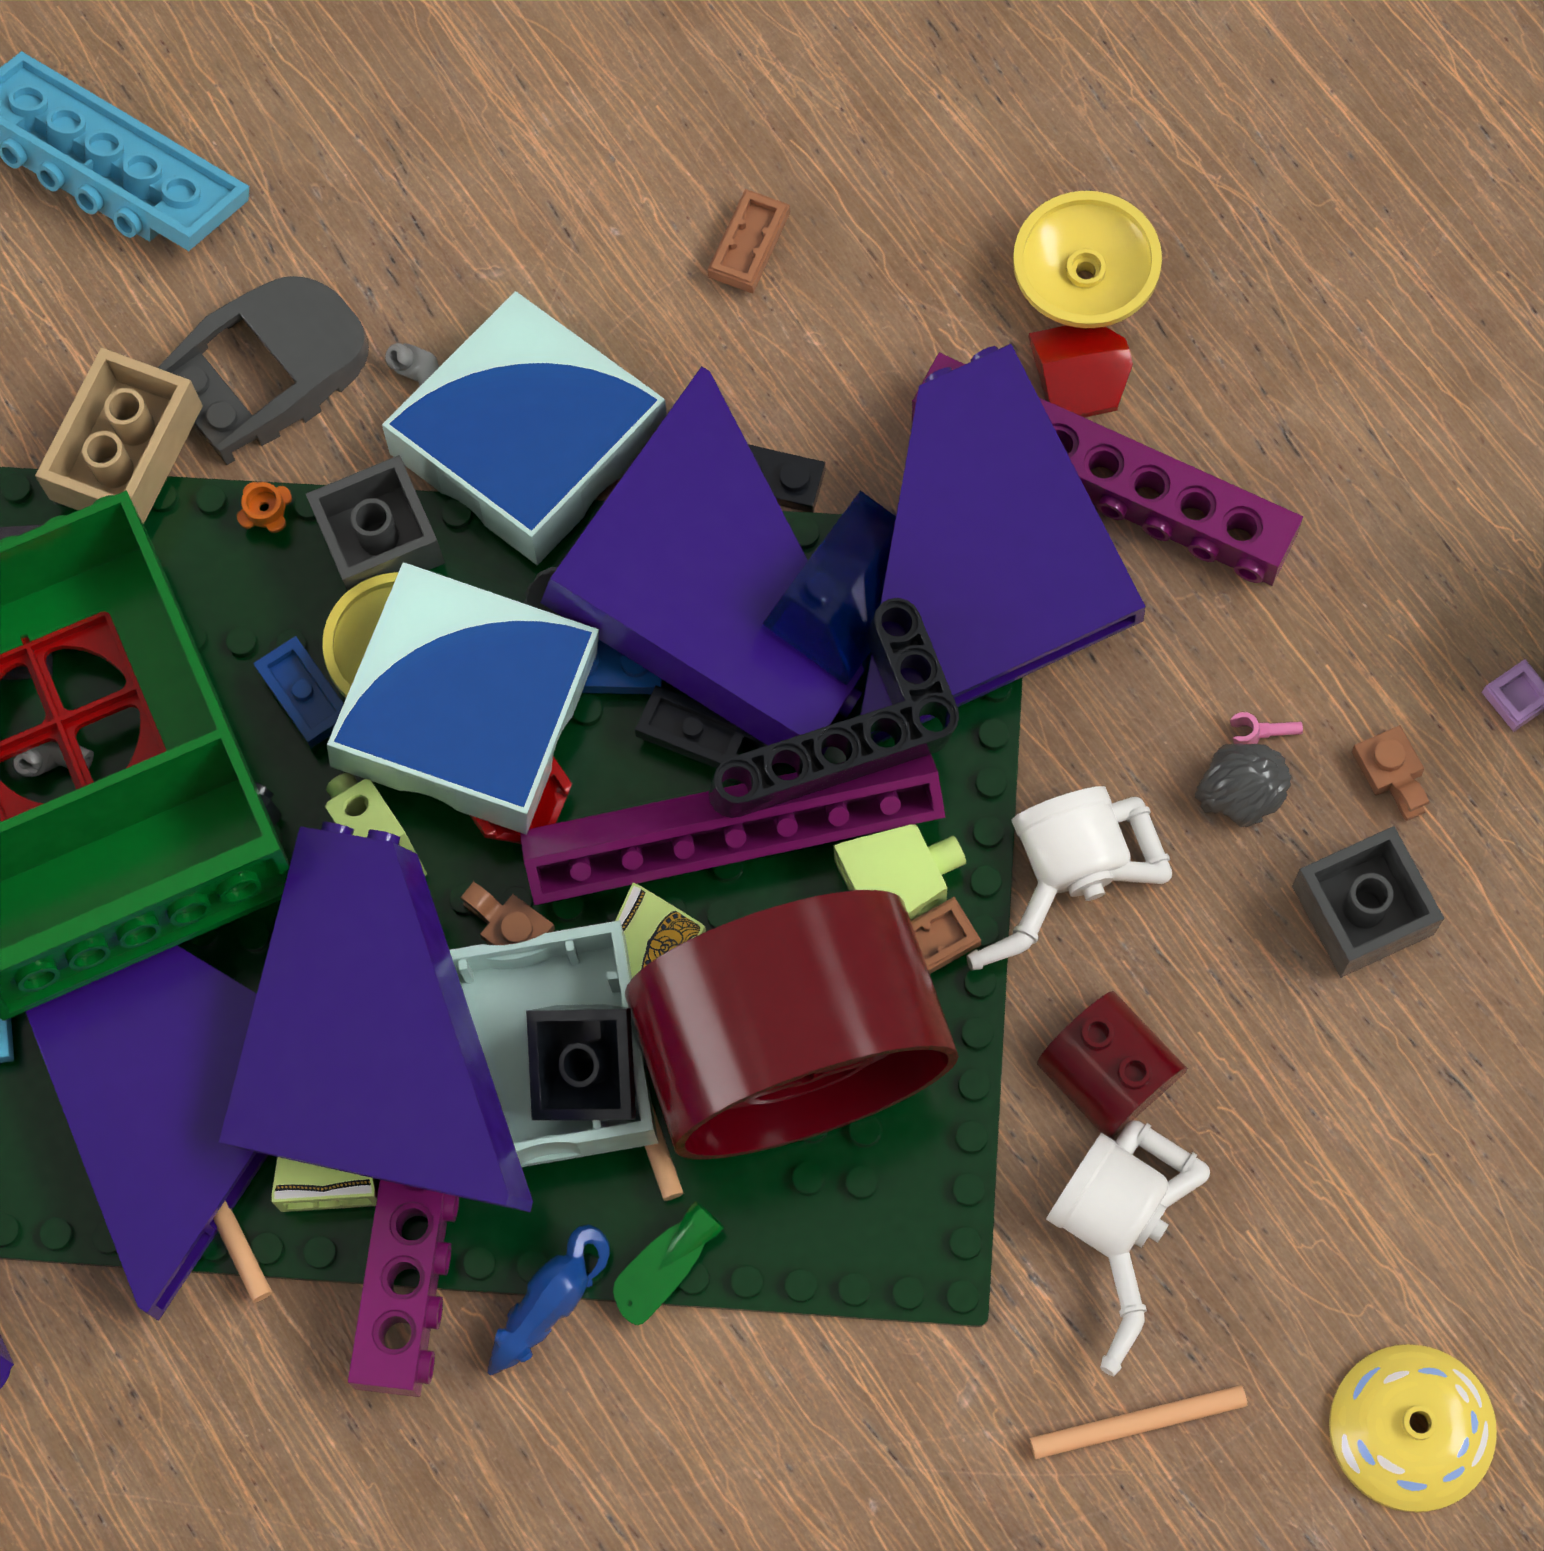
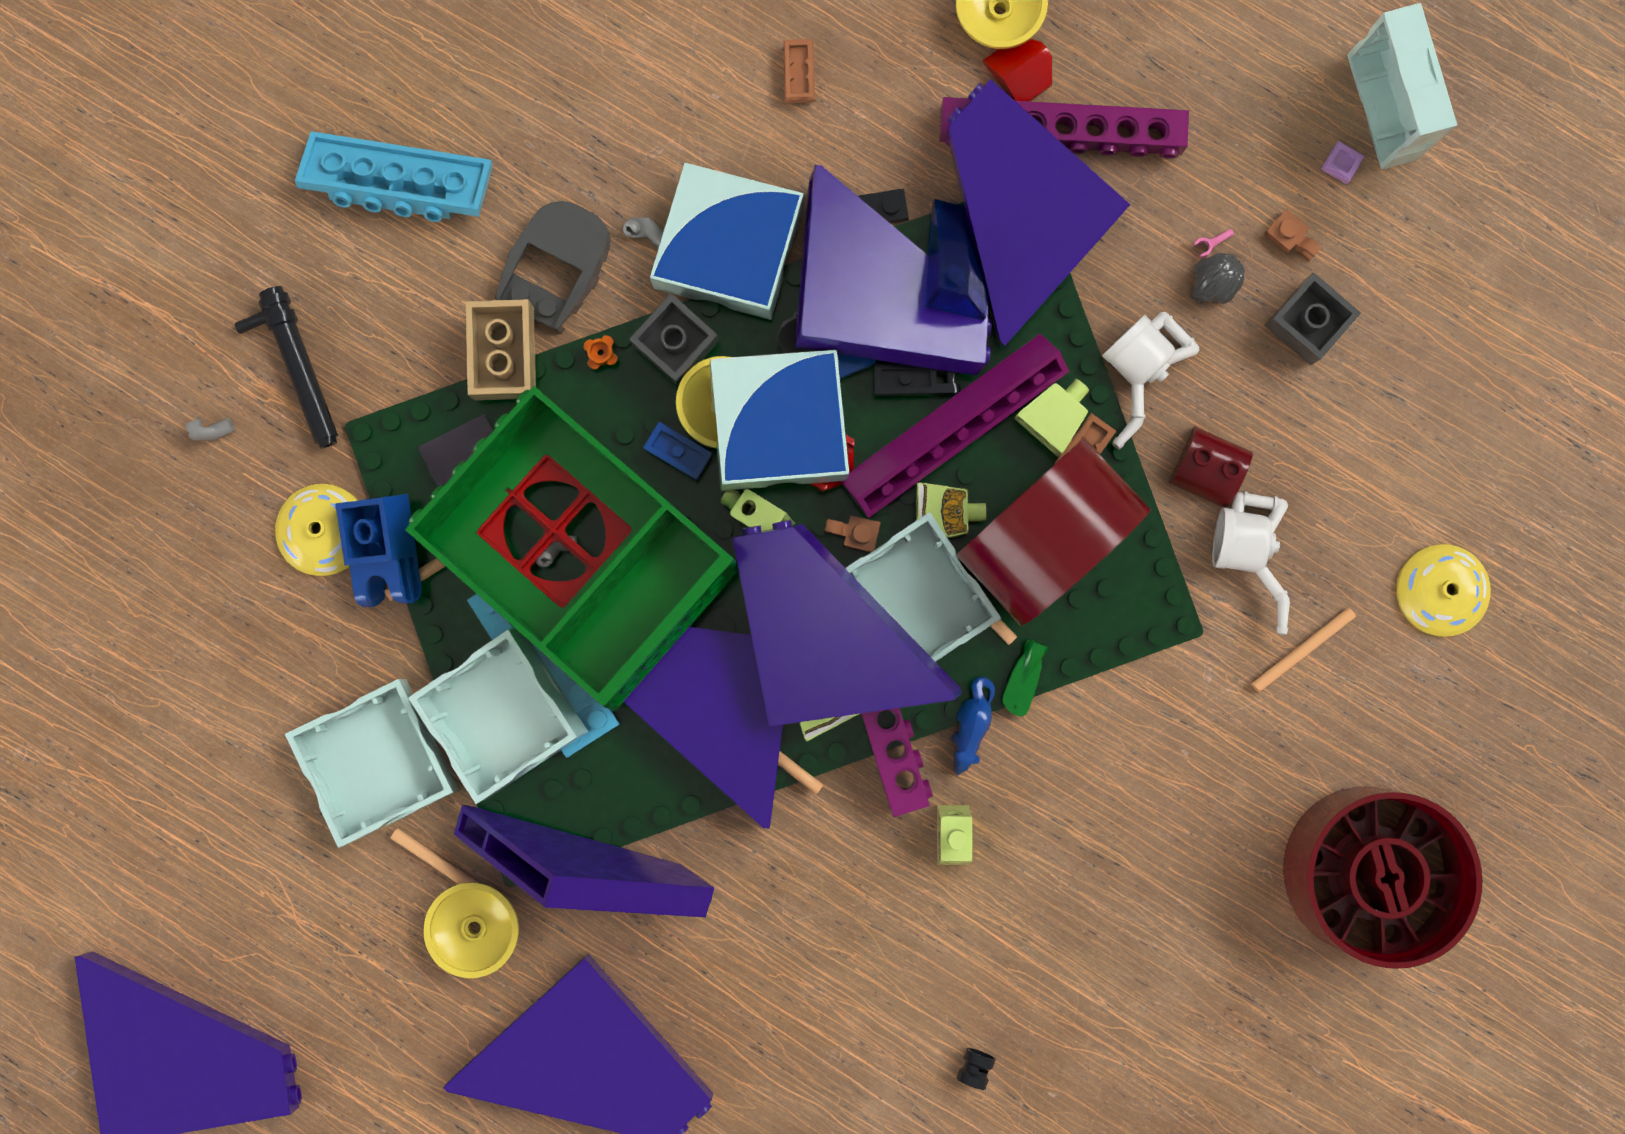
camera: 30 degrees left, 15 degrees up
(432, 1466) = (954, 835): none -> yellowish green torso
(581, 1063) = (946, 598): black slope -> none
(853, 735) = (1009, 352): black beam -> none

